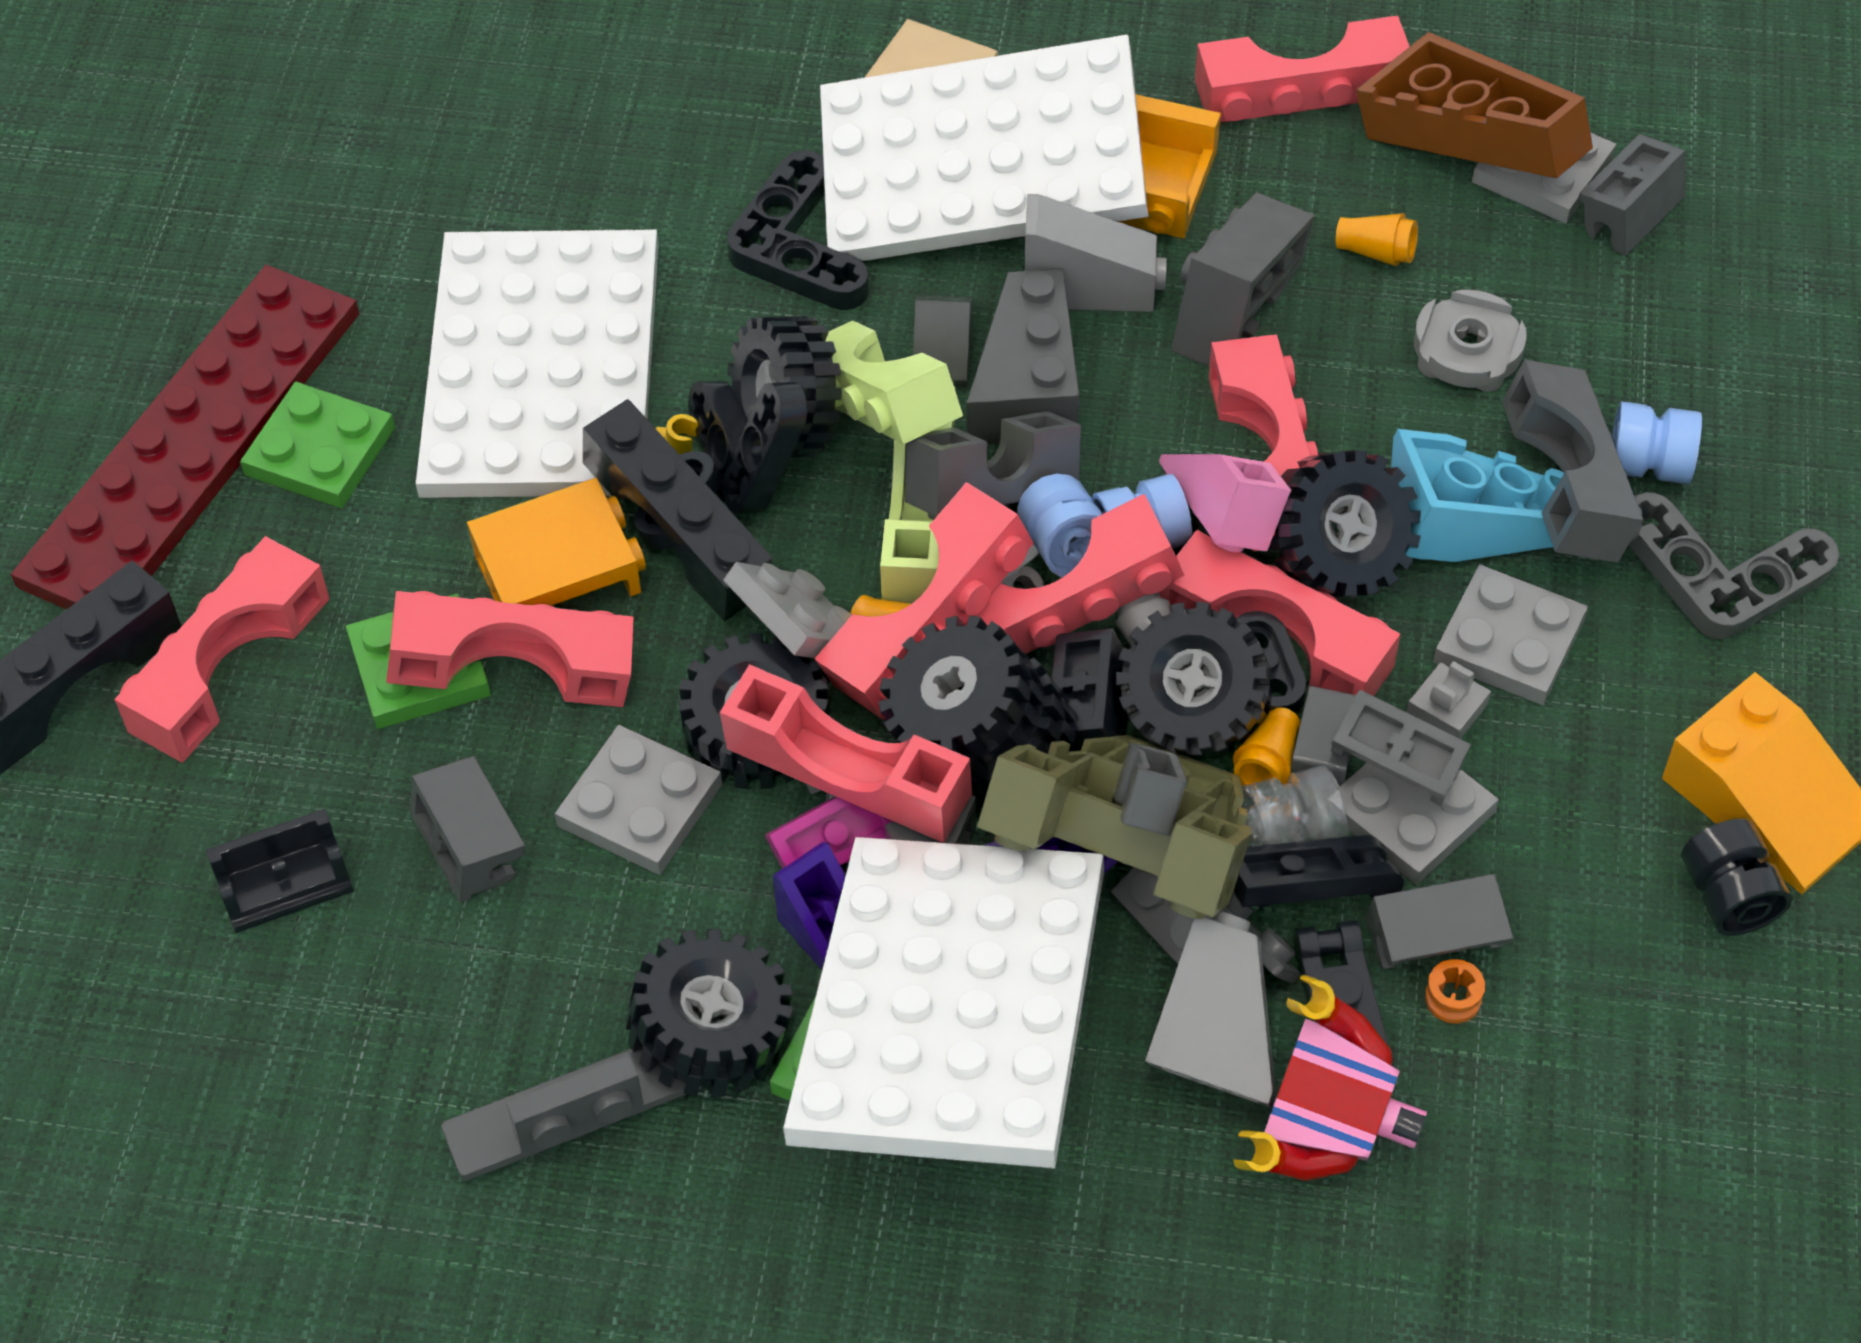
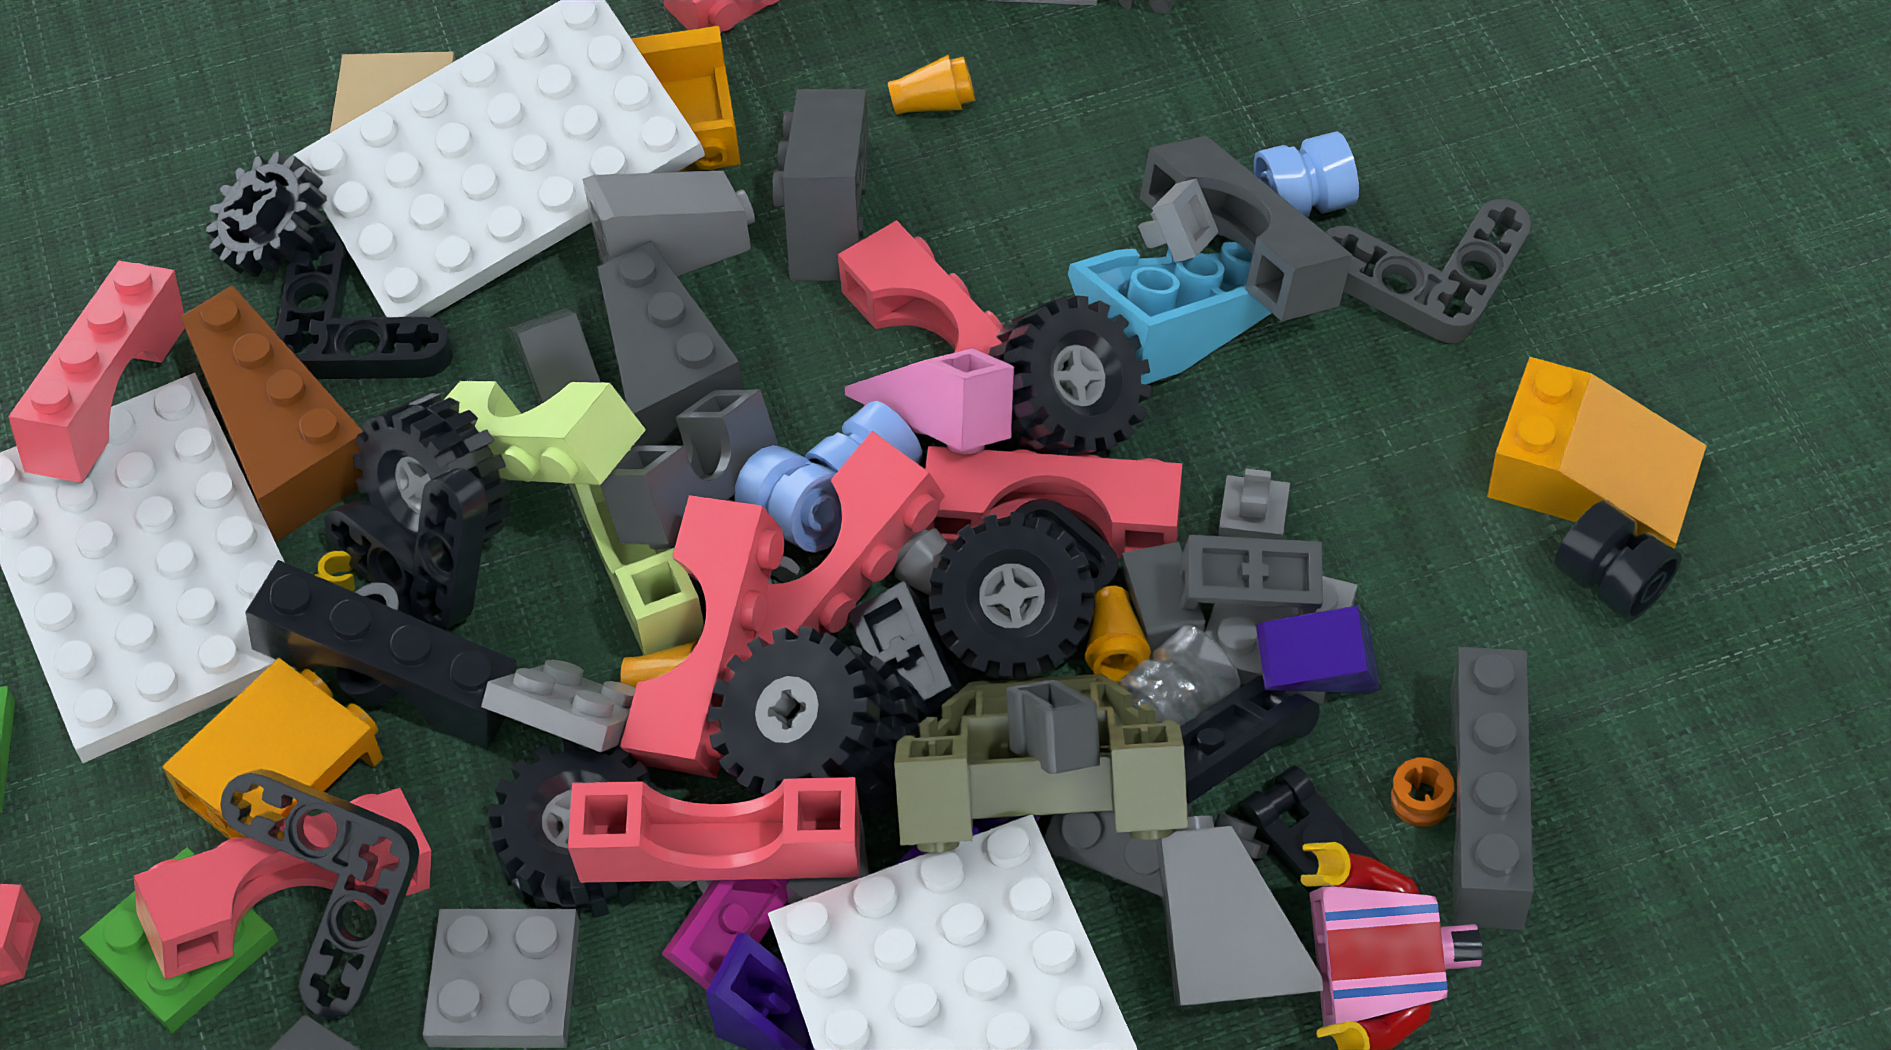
camera: 25 degrees left, 0 degrees up
(536, 218) = (67, 408): none -> coral arch
(561, 653) = (347, 857): none -> black beam
(694, 286) = (278, 415): none -> dark orange wedge
(775, 125) = (266, 214): none -> black gear
(1426, 836) = (1318, 652): none -> dark purple slope
(1438, 920) = (1372, 732): dark grey hinge -> none
(1466, 364) = (1075, 177): light grey plate -> none
(1507, 1011) = (1493, 789): none -> dark grey arch
(1511, 634) = (1274, 419): light grey plate -> none
(1517, 433) = (1180, 221): none -> light grey tile

